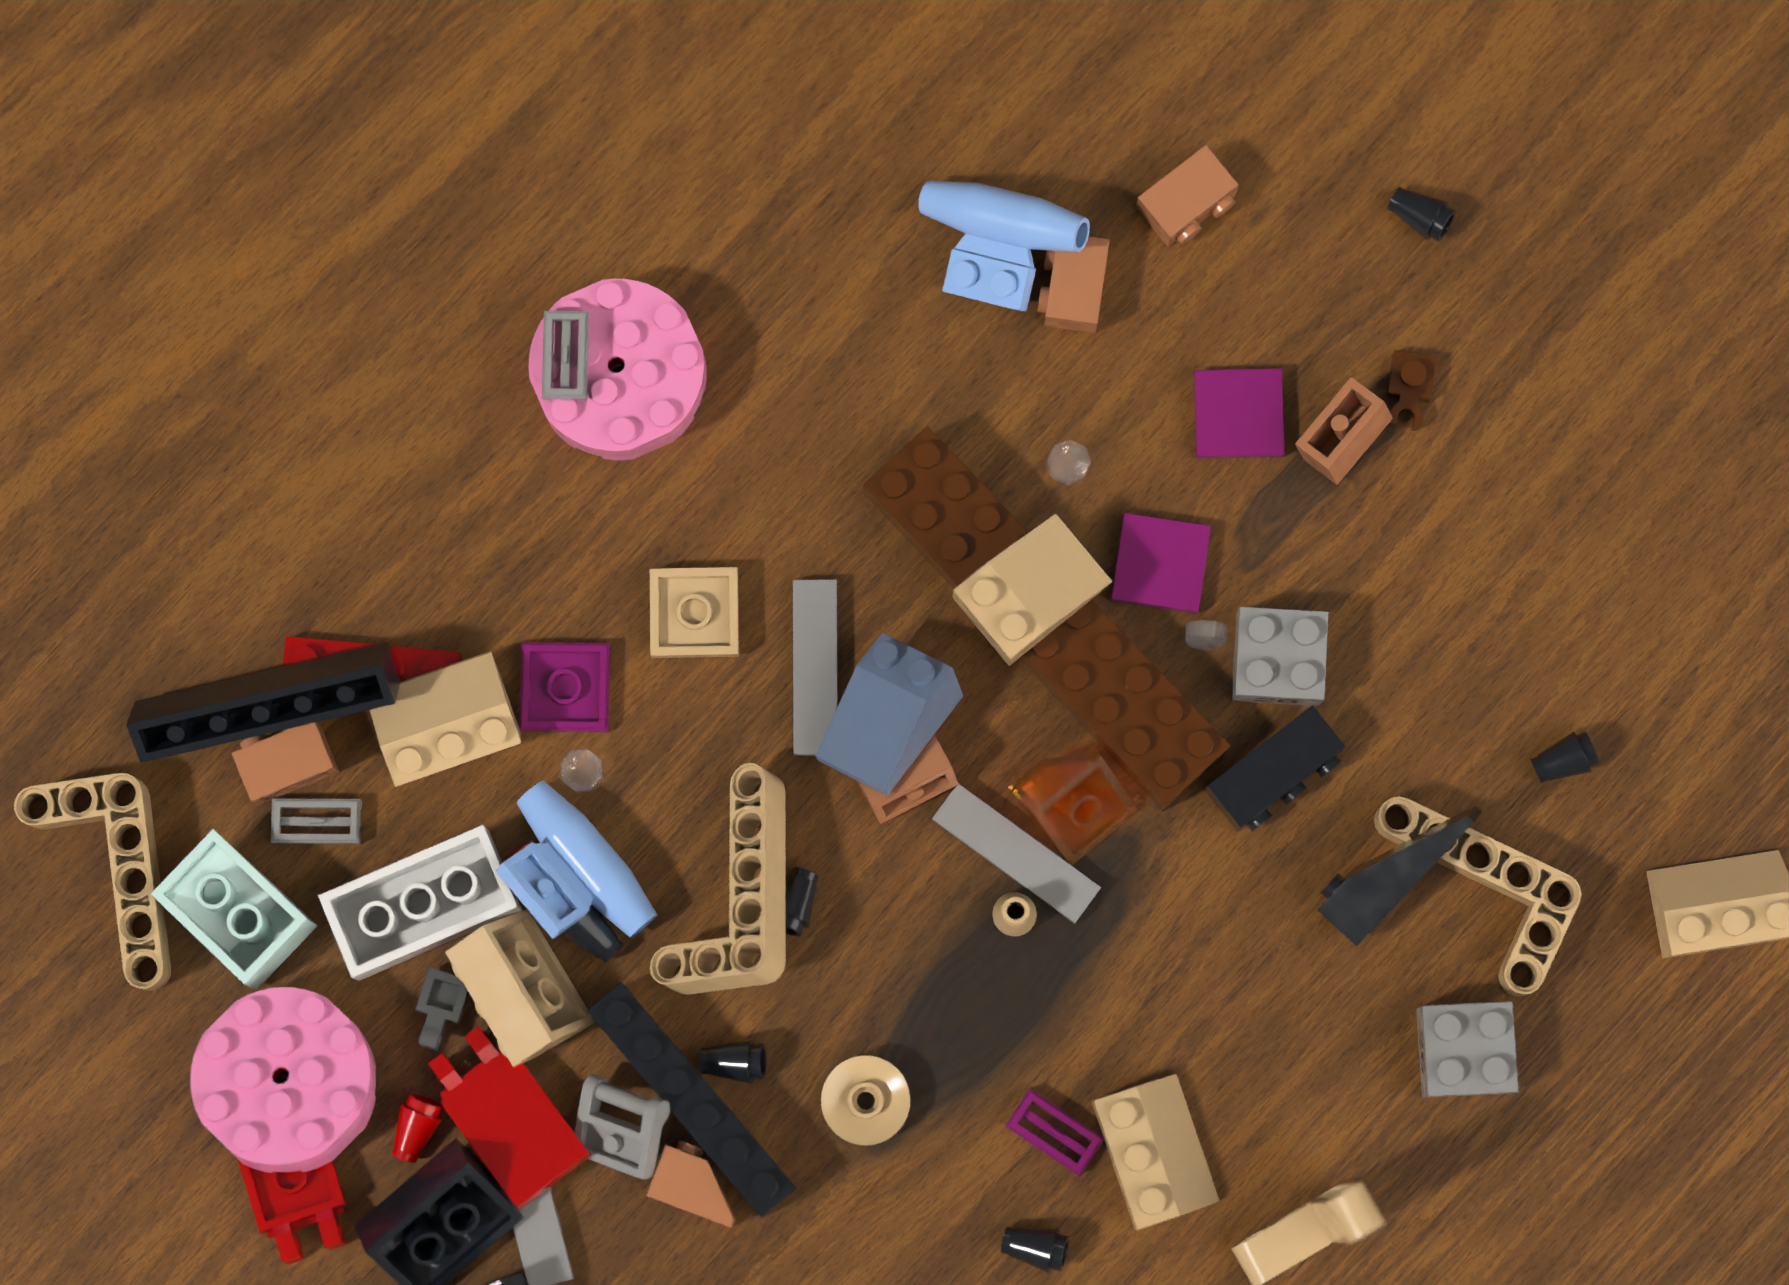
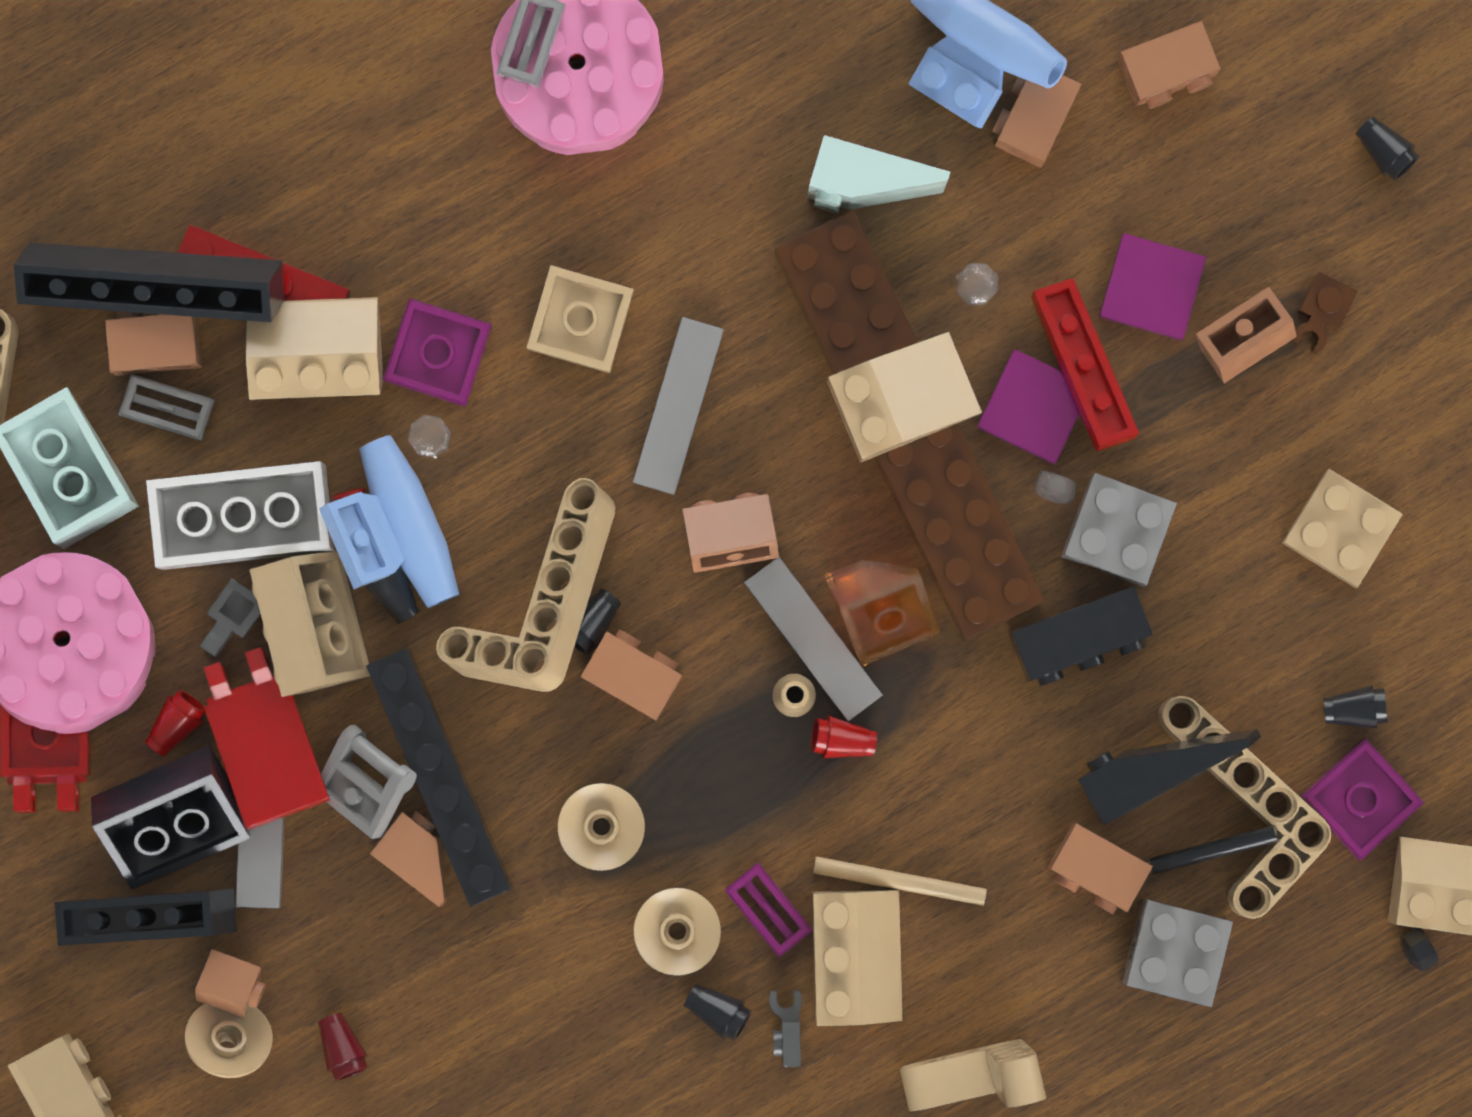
camera: 10 degrees right, 5 degrees up
(735, 1061) = (490, 752): black cone -> none
(850, 941) = (631, 674): none -> nougat brick
(888, 713) = (732, 472): sand blue slope -> none
(929, 390) = (863, 177): none -> light aqua slope
(996, 1180) = (670, 954): none -> tan dish
(1074, 942) = (842, 739): none -> red cone
(1113, 1254) = (787, 1040): none -> dark grey plate
(1174, 1064) = (899, 881): none -> tan bar
(1197, 507) = (1084, 364): none -> red plate
(1365, 991) = (1099, 868): none -> nougat brick
(1471, 937) = (1214, 849): none -> black bar
(1495, 589) = (1342, 528): none -> tan plate
(1600, 845) = (1362, 799): none -> magenta tile
(1701, 974) = (1418, 949): none -> black tile

